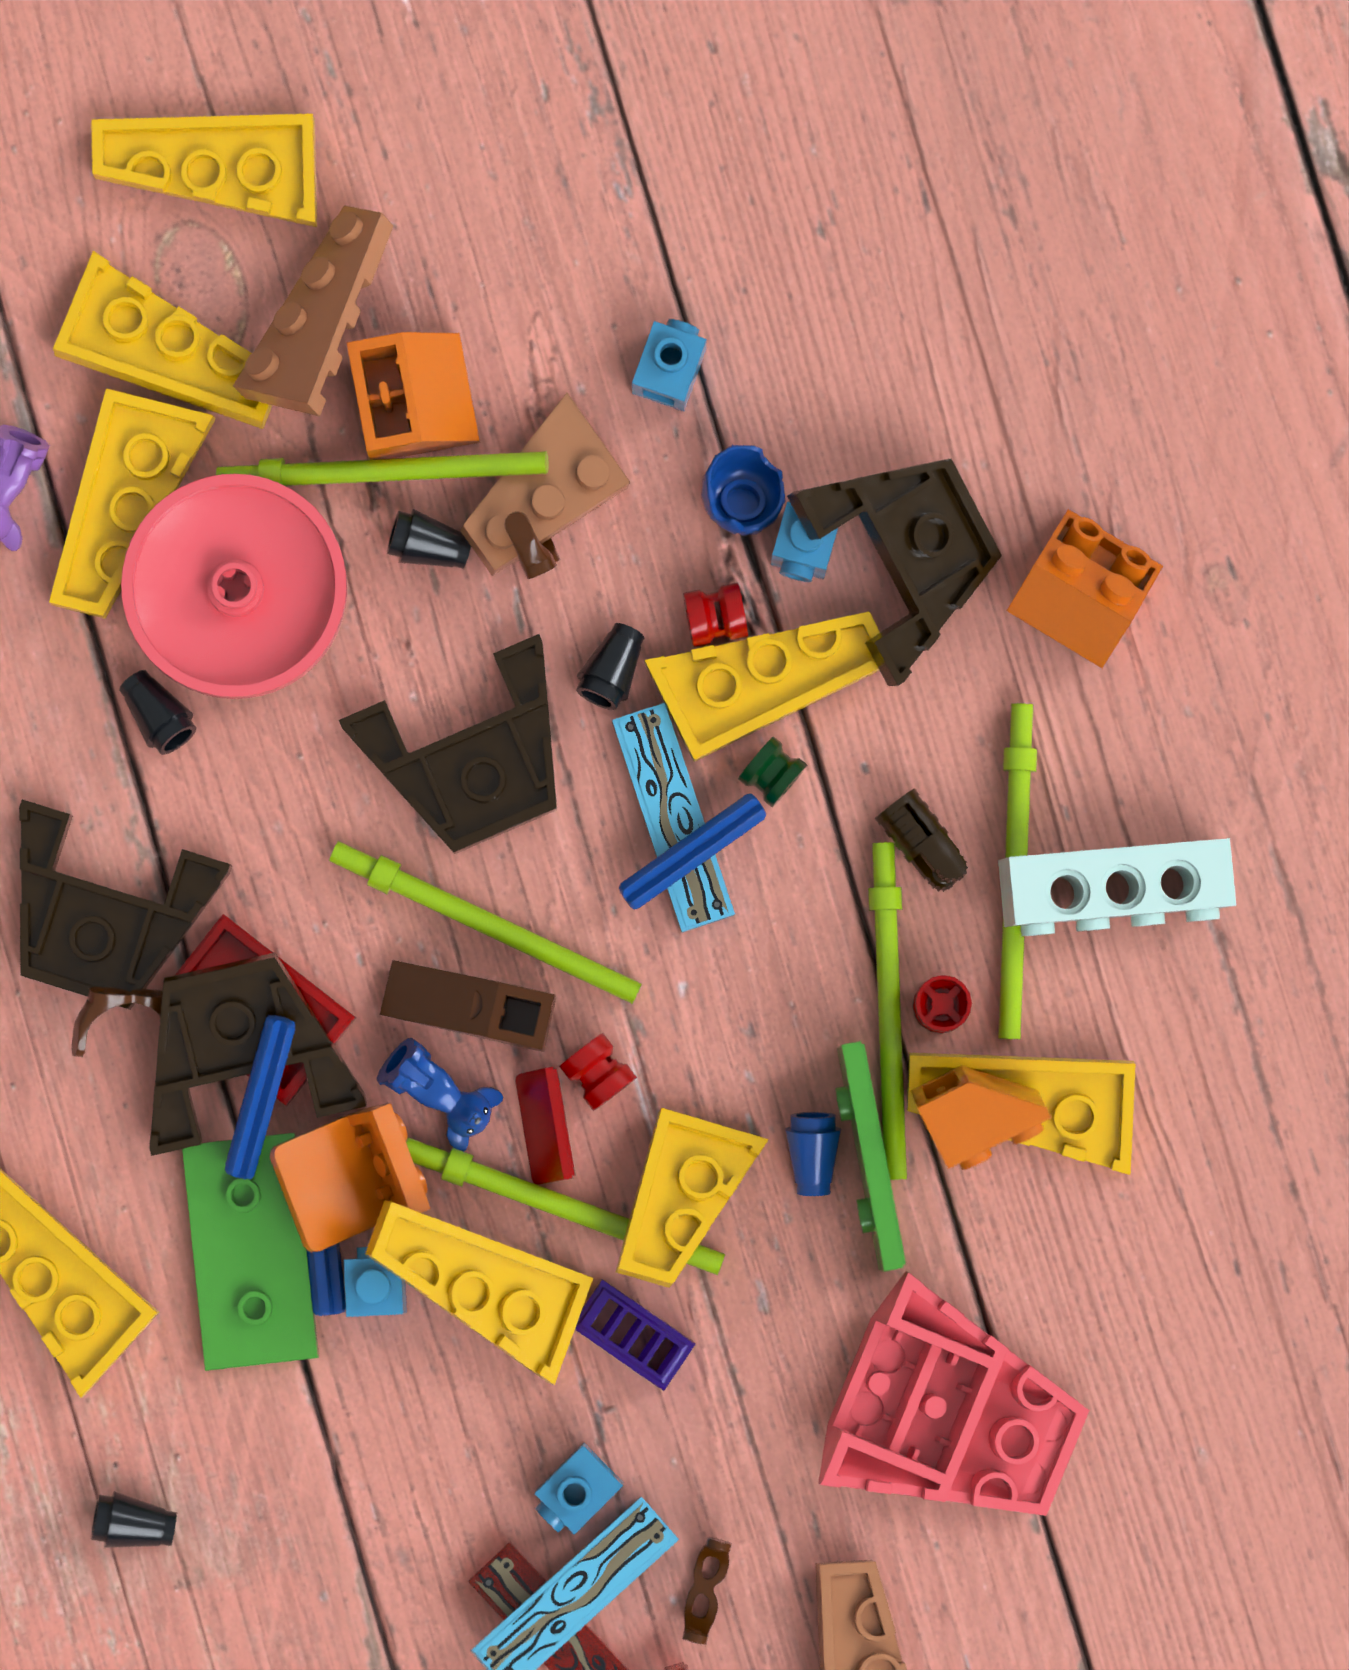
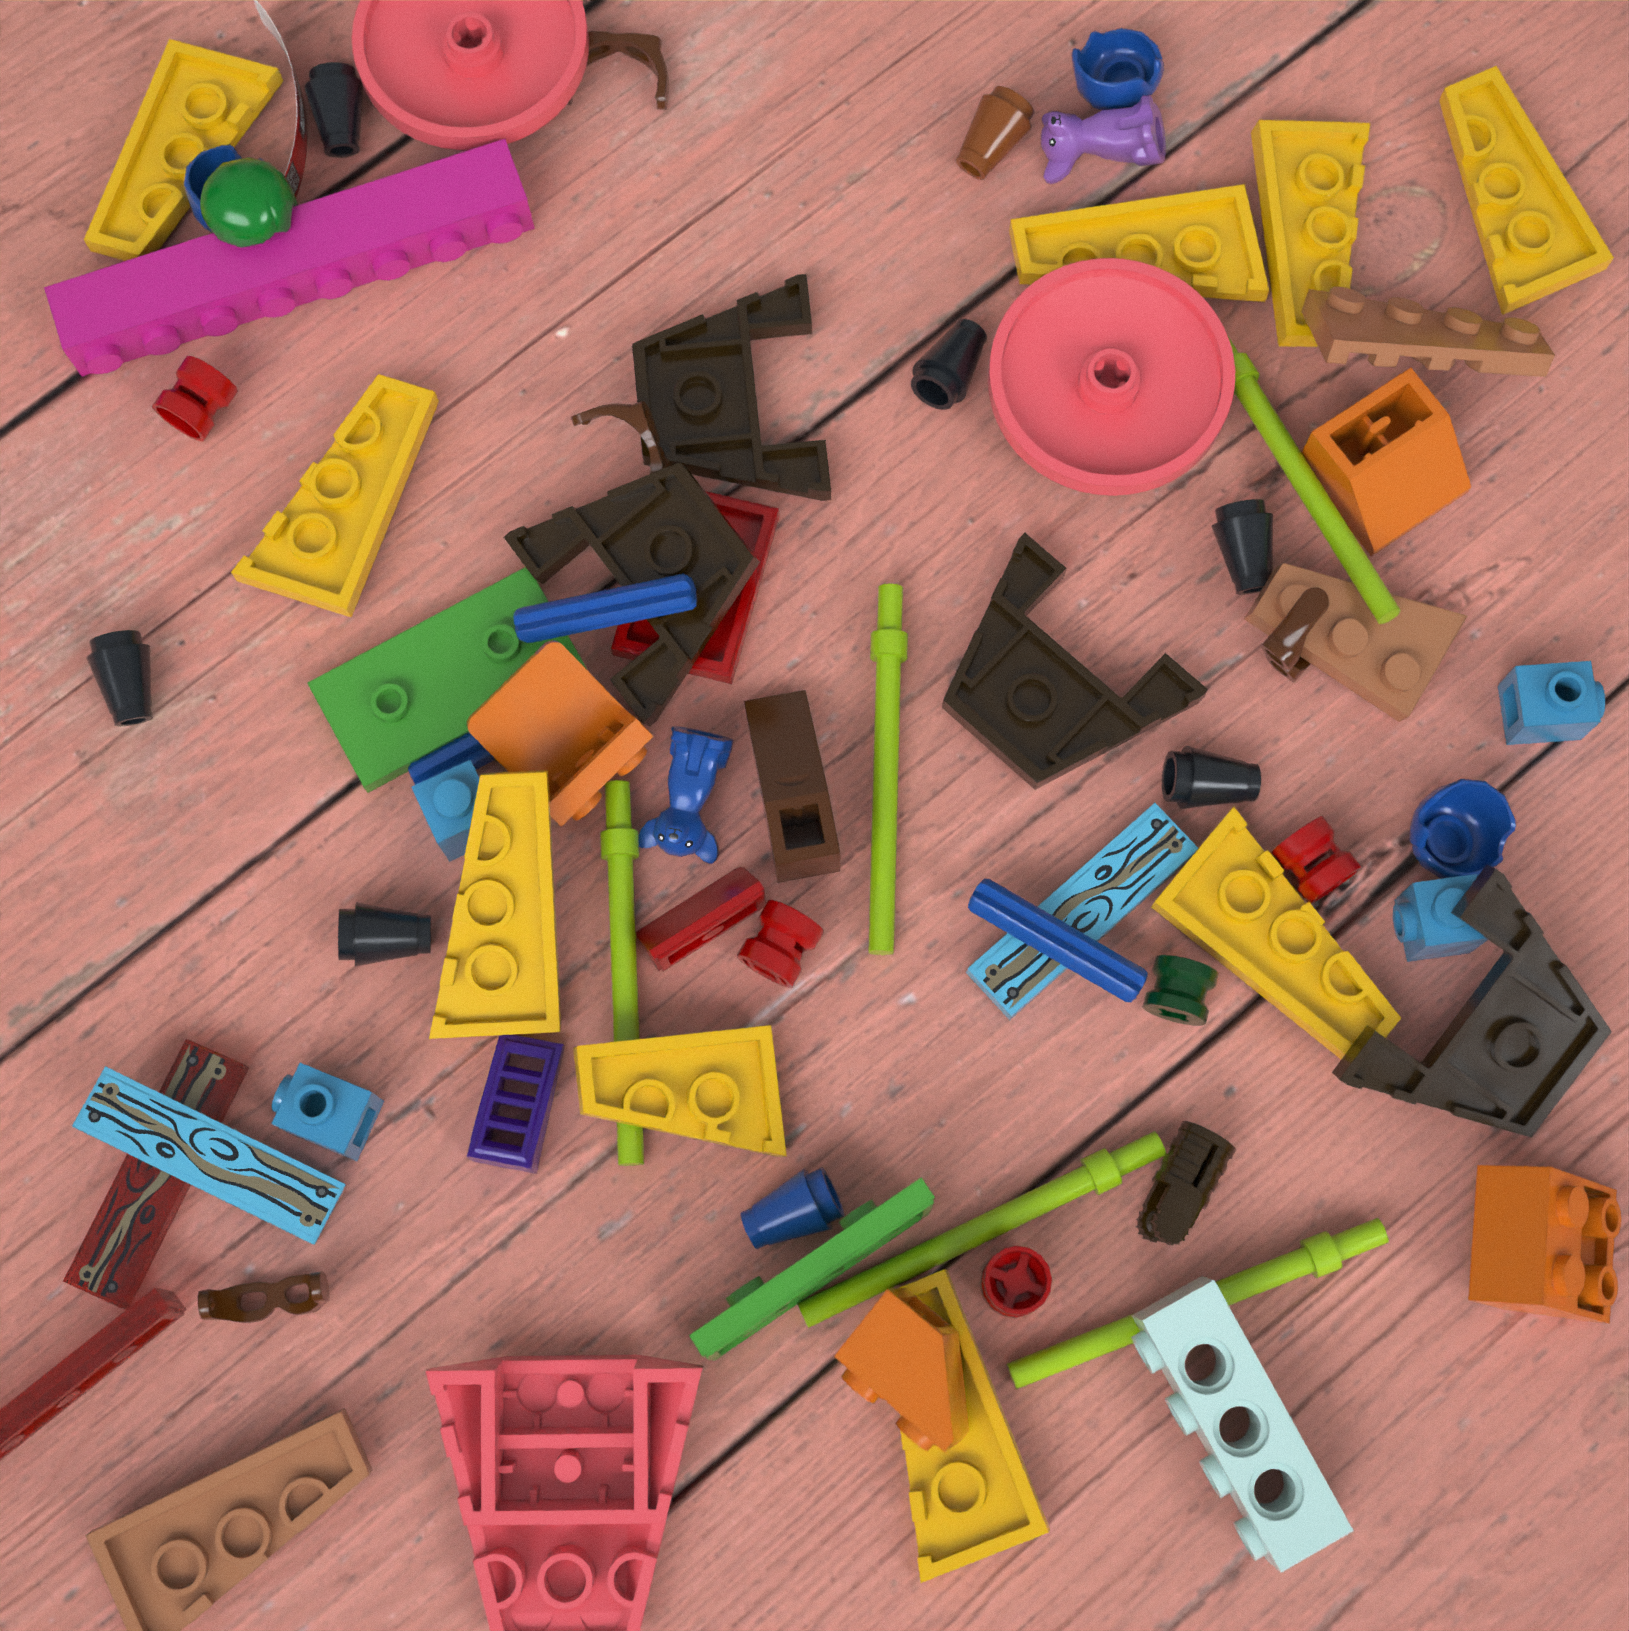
camera: 70 degrees right, 10 degrees down
(450, 1390) = (381, 934): none -> black cone

